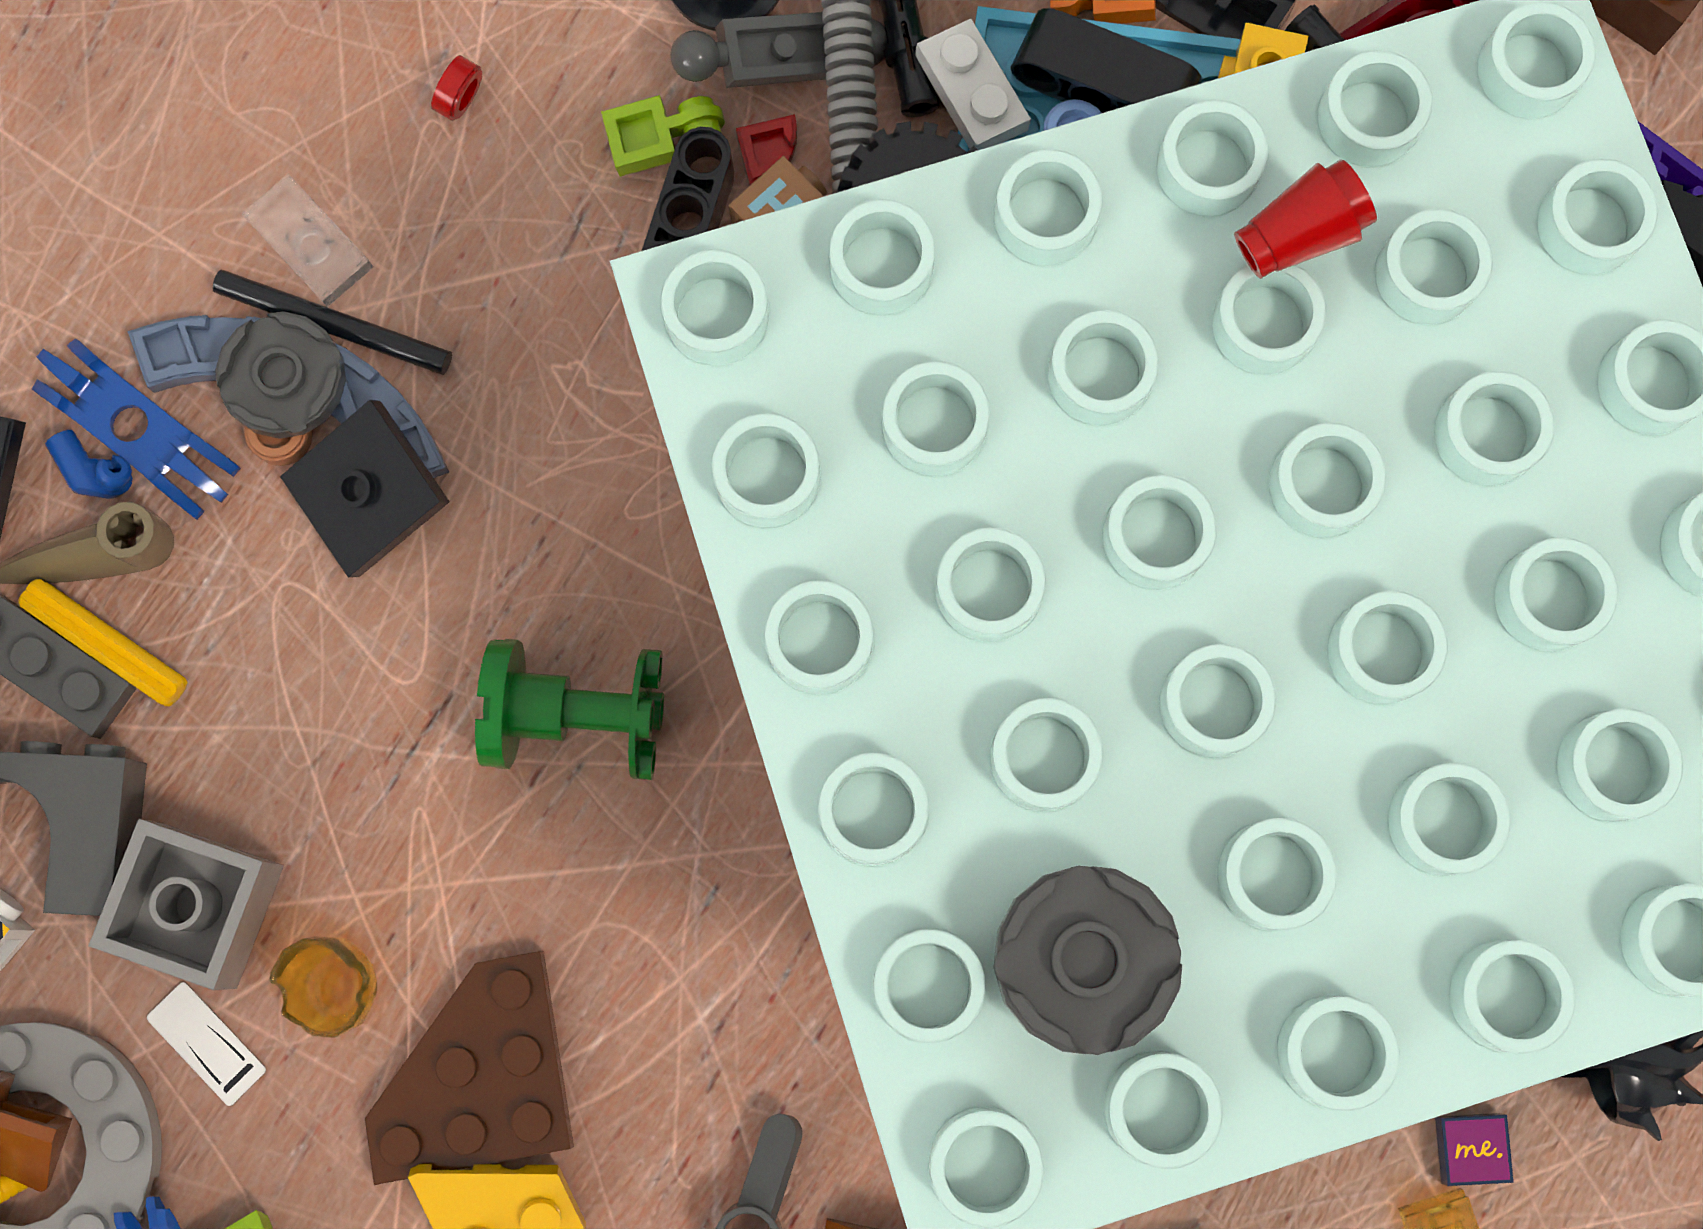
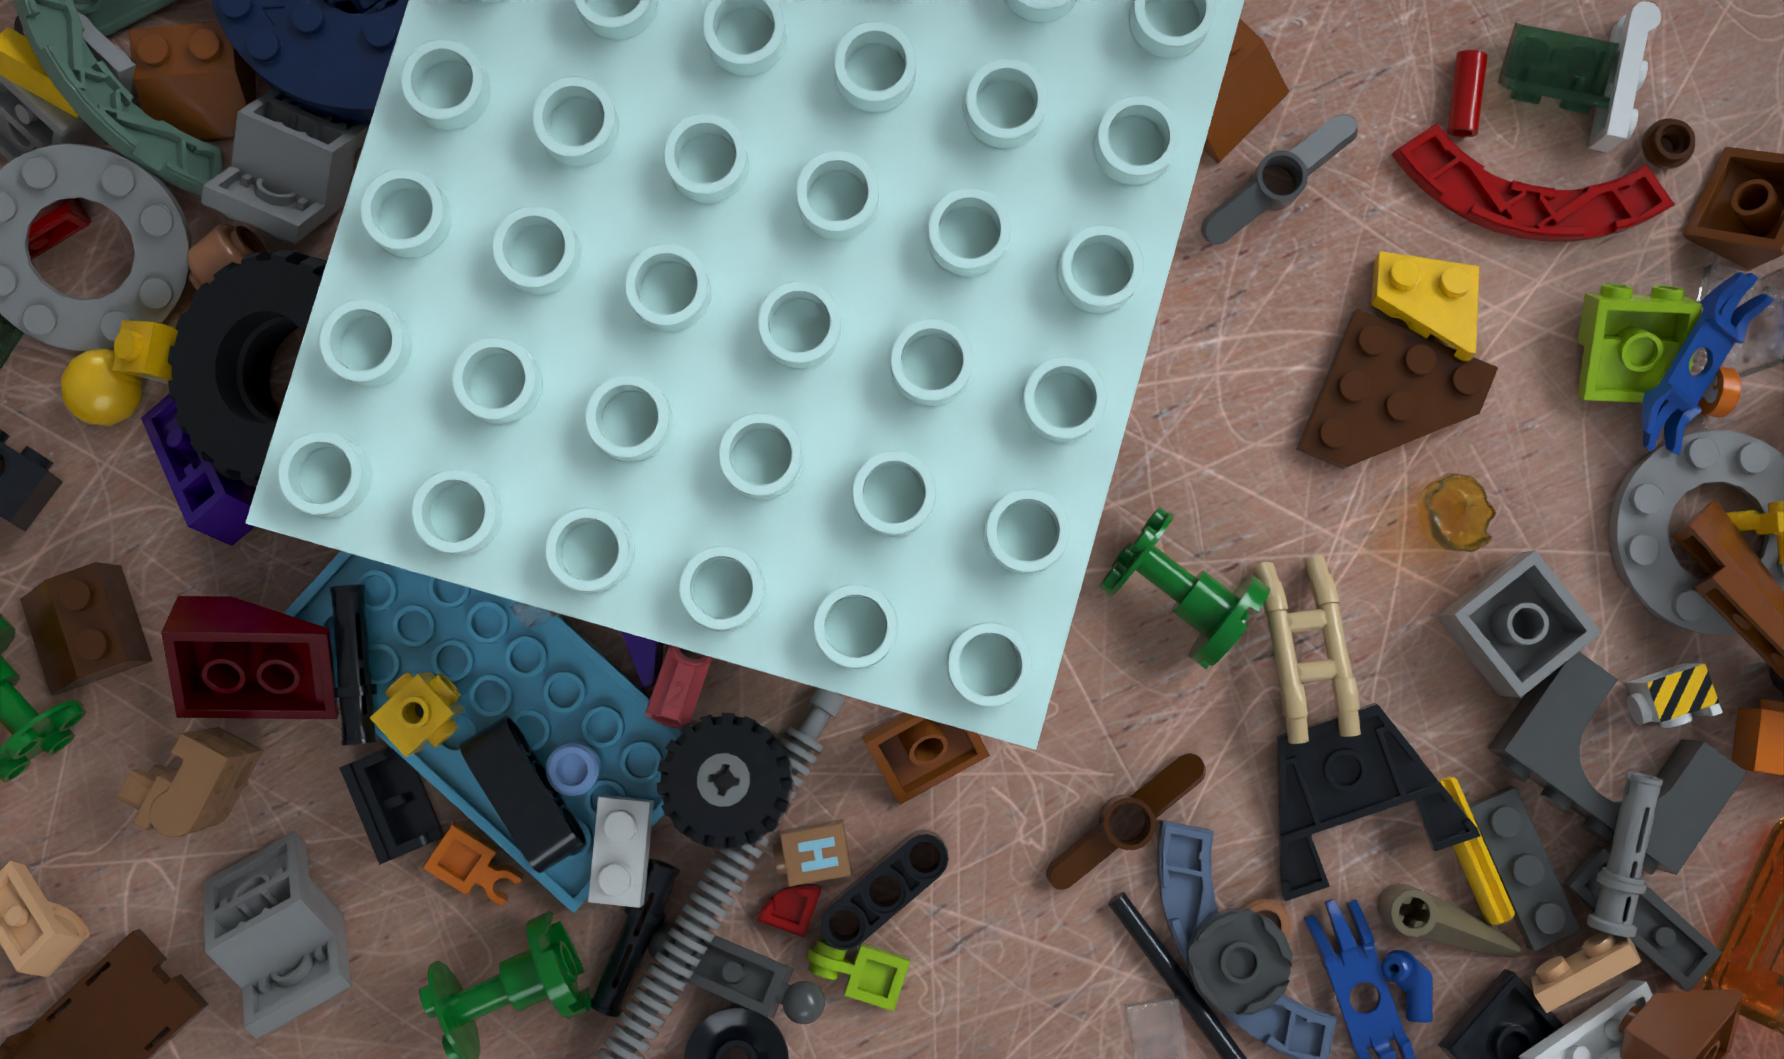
camera: 150 degrees left, 5 degrees up
(206, 1044) = (1554, 530): white sticker -> none
(281, 635) = (1349, 778): none -> black wing
(364, 488) = (1229, 840): black plate -> none
(398, 694) = (1293, 675): none -> tan piece
(472, 478) = (1152, 799): none -> reddish brown piece
(1088, 960) = (1033, 84): dark grey tile -> none
(1308, 220) = (568, 452): red cone -> none

